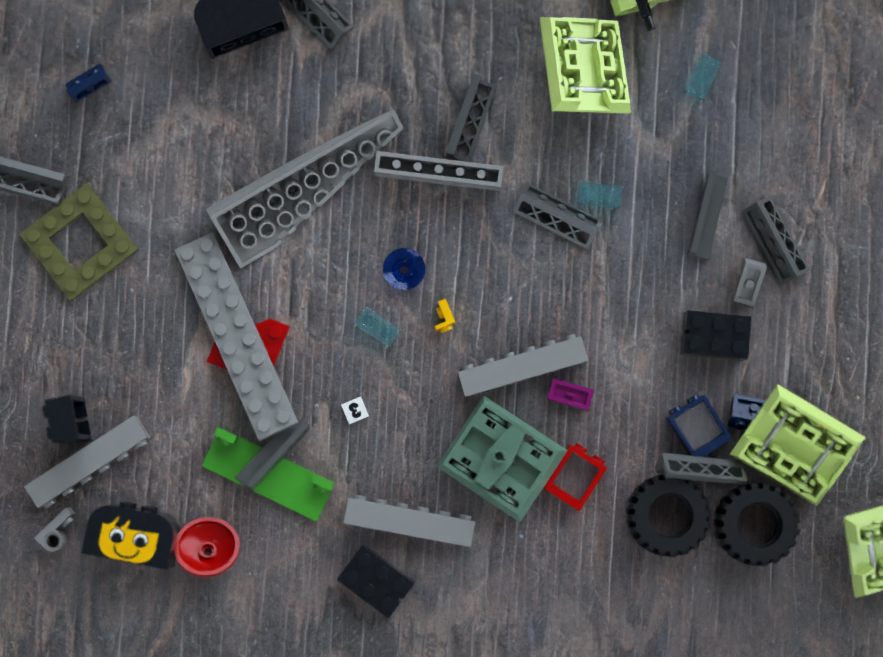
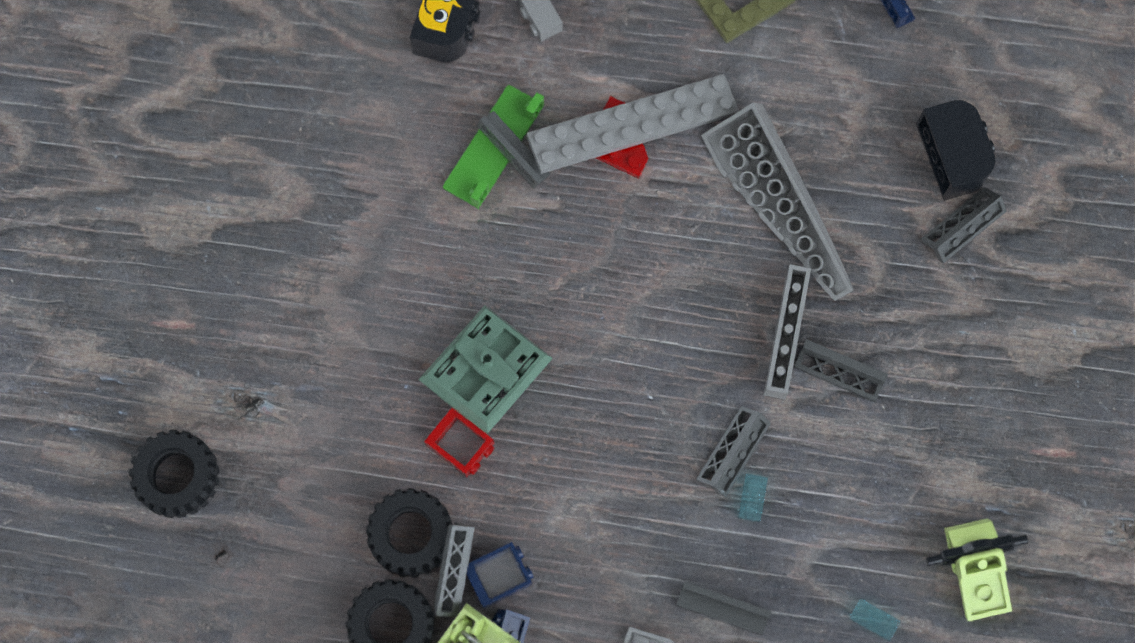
camera: 95 degrees right, 10 degrees down
(204, 536) = (436, 75): red dish -> none
(355, 410) = (549, 233): white tile -> none
(375, 581) = (377, 237): black piece -> none
(377, 327) = (631, 260): clear light blue plate -> none
(398, 259) = (692, 281): clear blue dish -> none
(408, 521) = (432, 275): light grey brick -> none
(444, 312) = (639, 328): yellow bracket -> none
(523, 366) = (578, 400): light grey brick -> none
(570, 394) = (545, 446): magenta plate -> none
(581, 62) = (889, 485): yellowish green piece -> none
(716, 335) = (593, 603): black piece -> none

